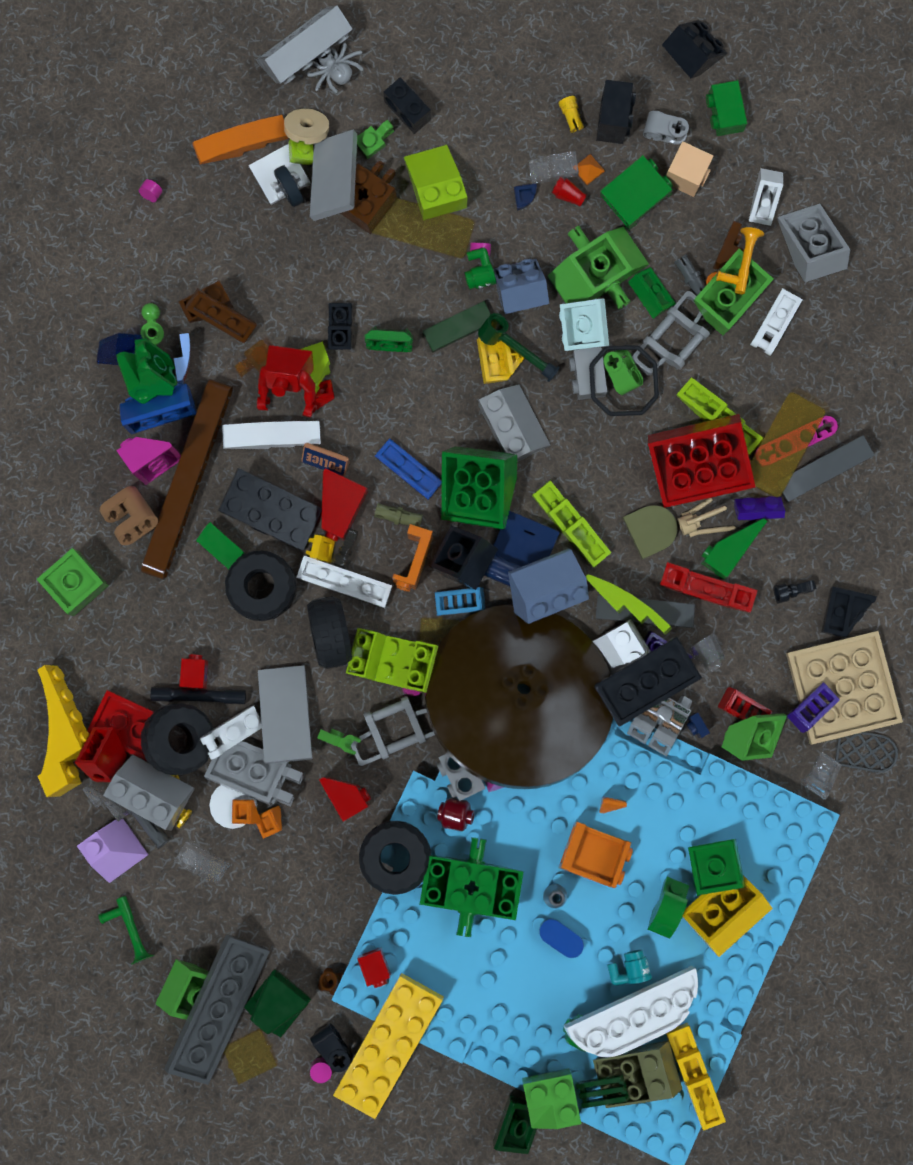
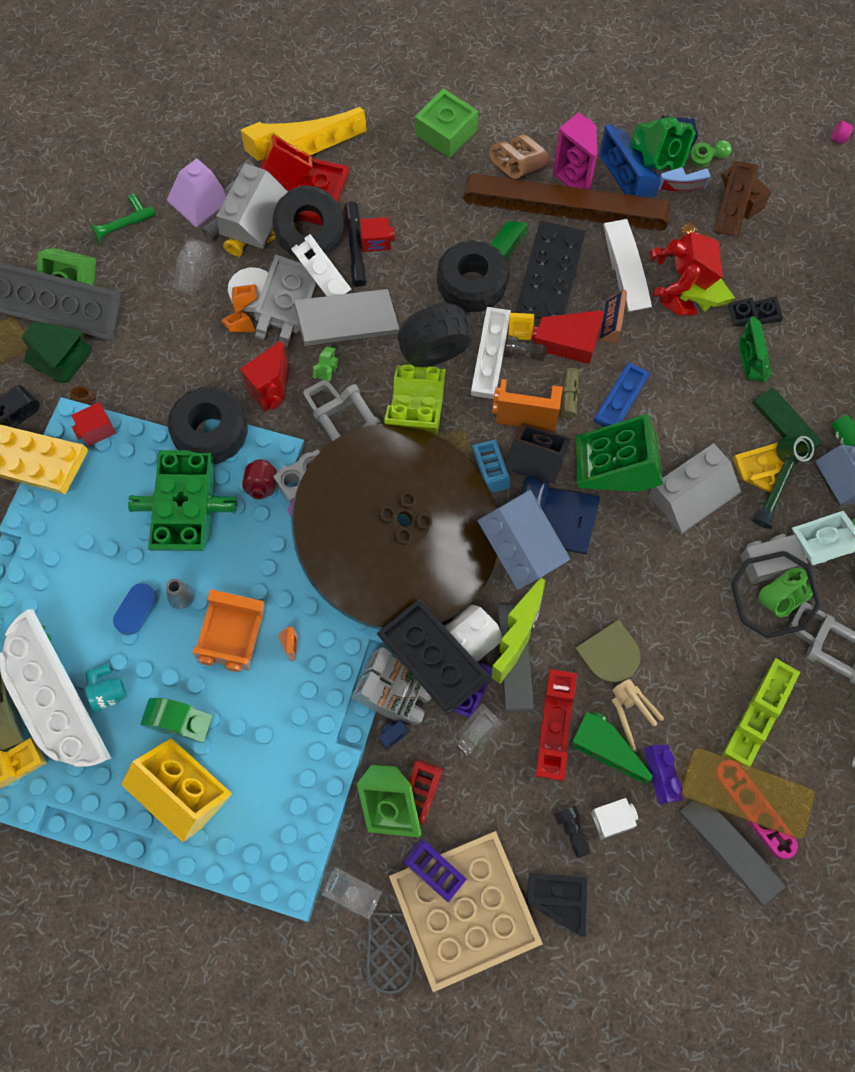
camera: 85 degrees right, 15 degrees down
(571, 524) = (598, 565): lime slope -> none
(701, 461) = (704, 695): red slope -> none
(716, 867) = (226, 769): green tile -> none
(789, 555) = (614, 818): none -> white brick

